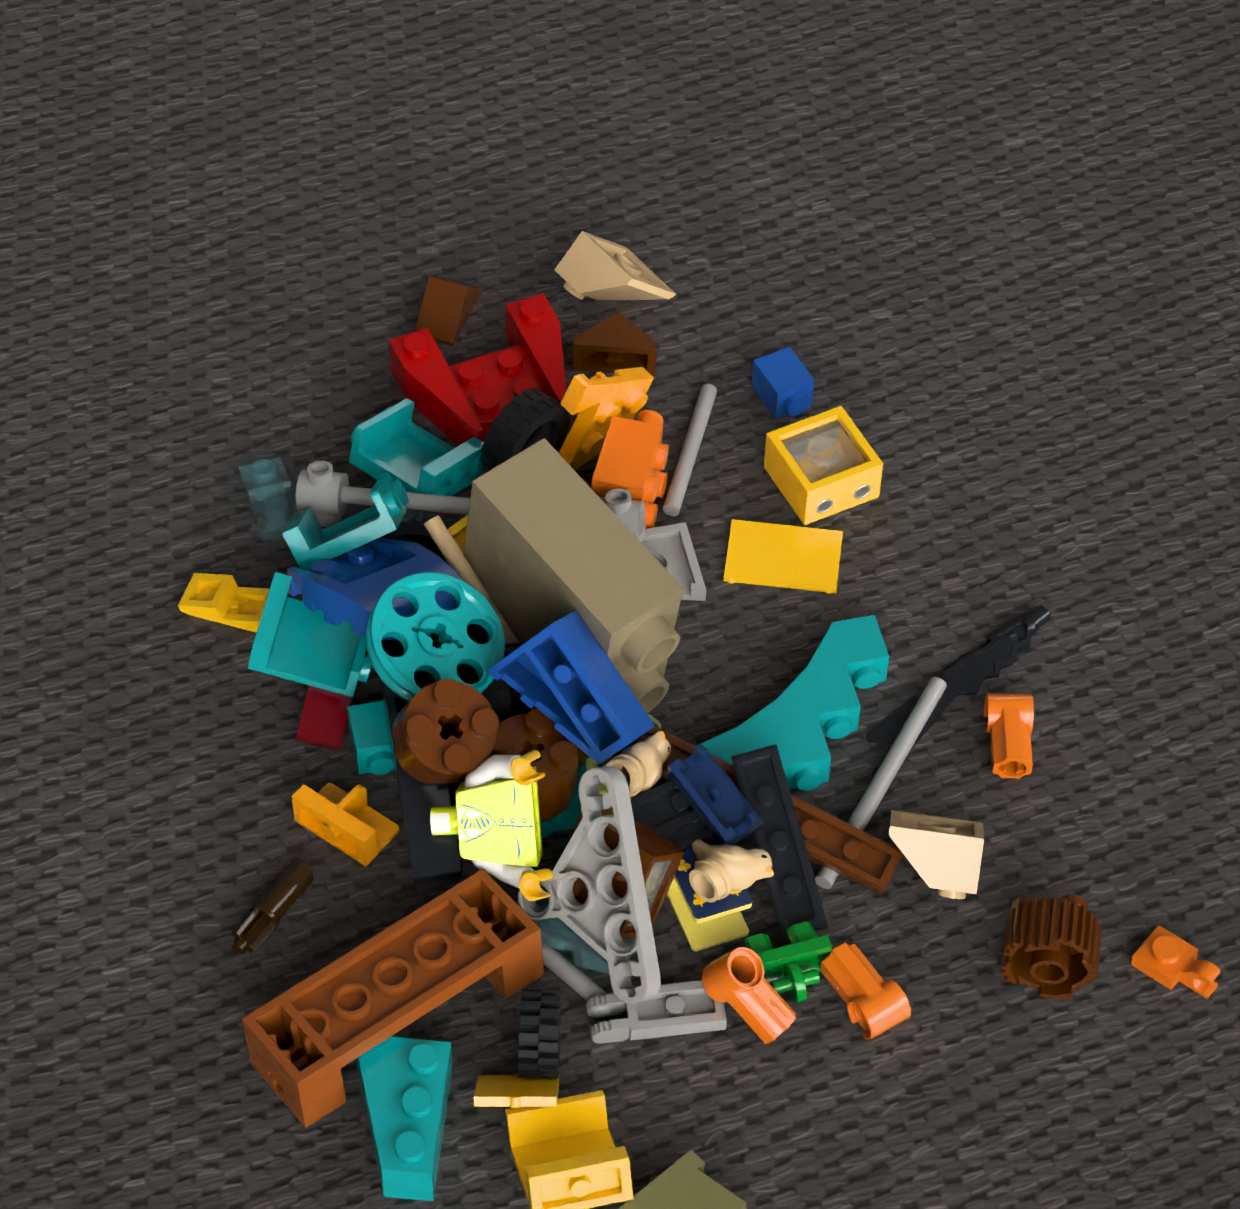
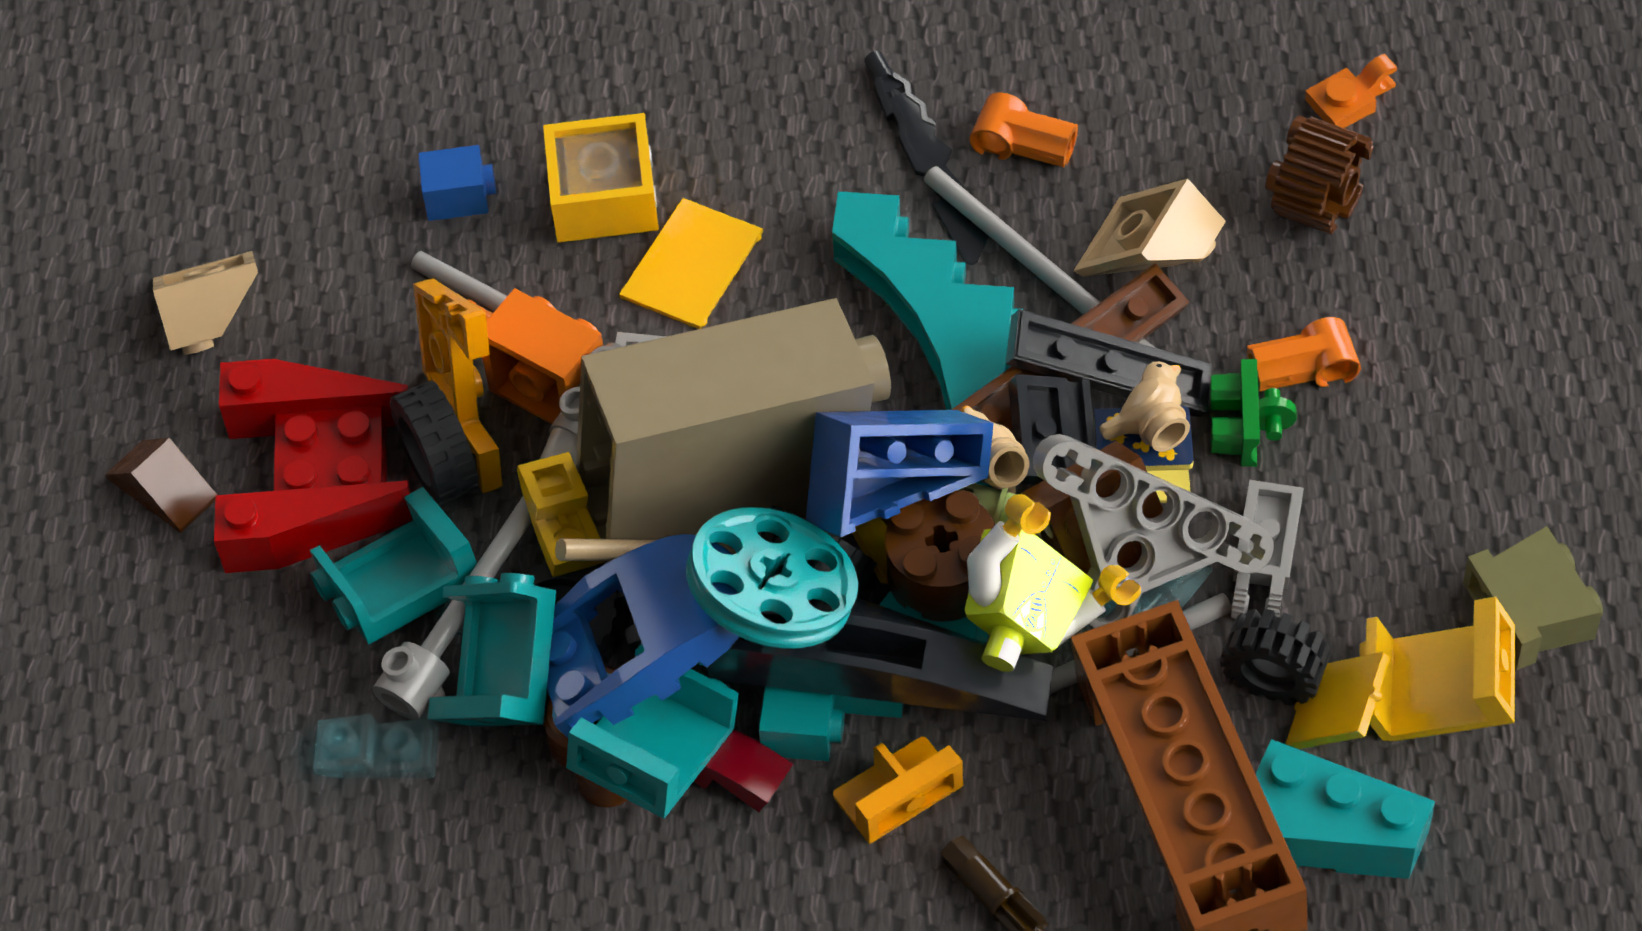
camera: 65 degrees left, 5 degrees up
(222, 601) = (521, 833): yellow slope -> none
(463, 714) = (915, 599): reddish brown brick -> none
(614, 346) = (323, 319): reddish brown slope -> none
(713, 796) = (1067, 389): dark blue hinge -> none
(741, 983) = (1285, 450): orange piece -> none

